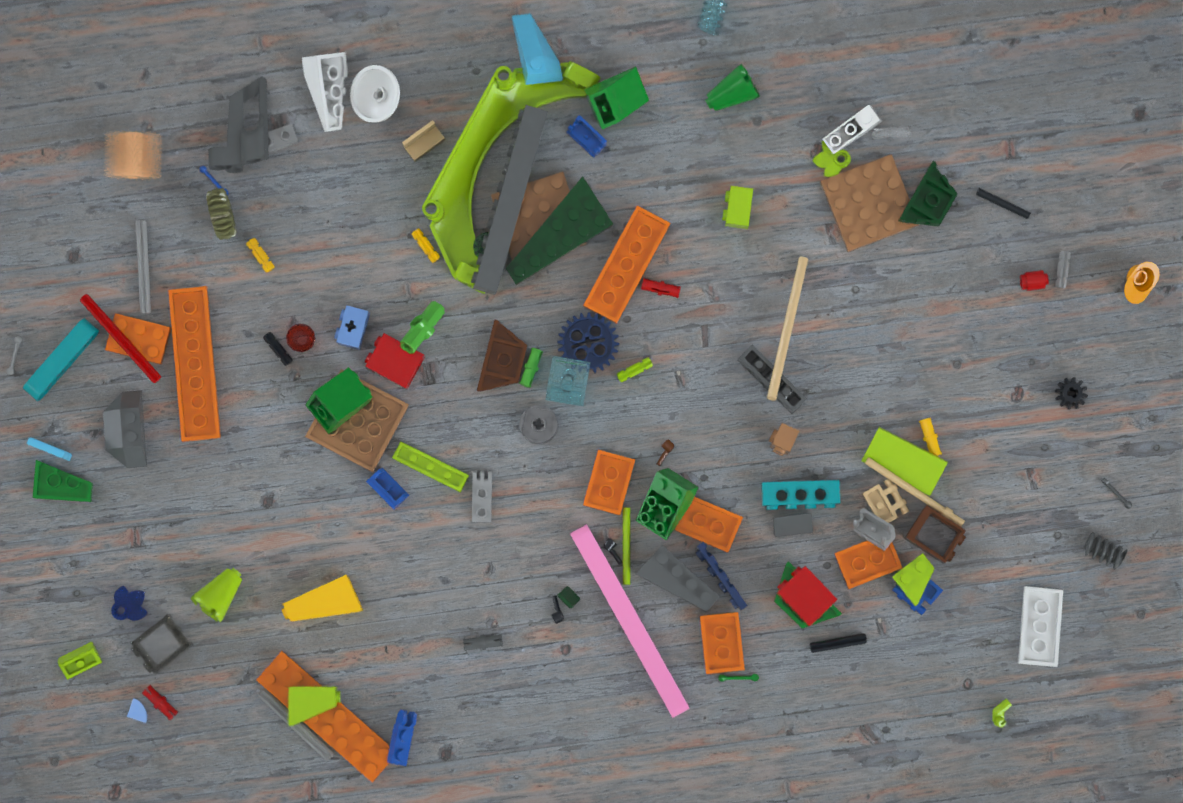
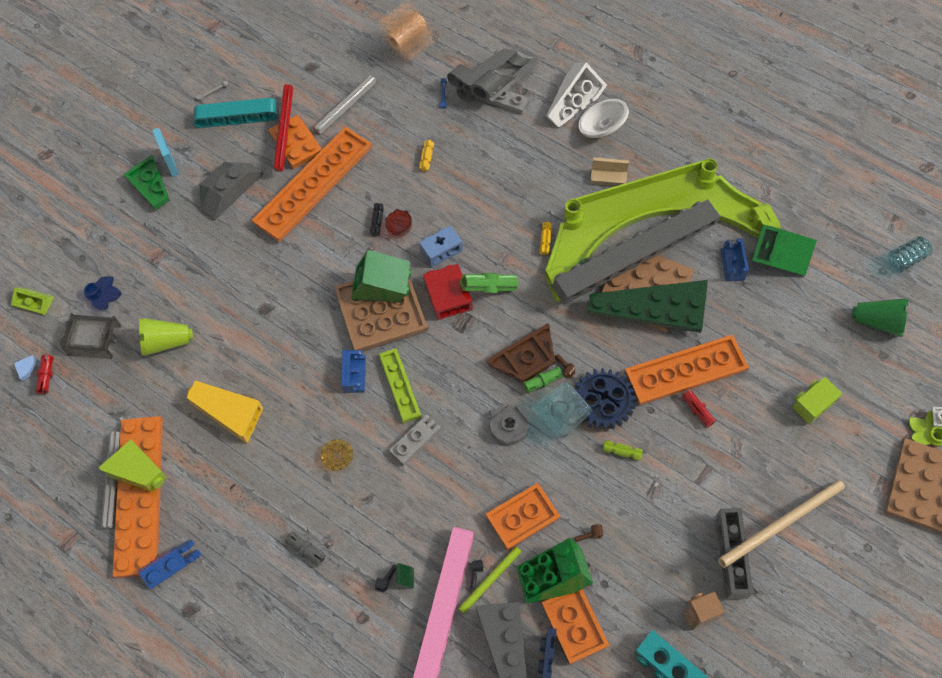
camera: 45 degrees right, 20 degrees down
(221, 213) = (426, 107): olive gear -> none
(431, 552) = (337, 446): none -> clear yellow gear
(535, 53) = (744, 180): medium azure wedge -> none
(543, 342) = (569, 369): none -> reddish brown hand

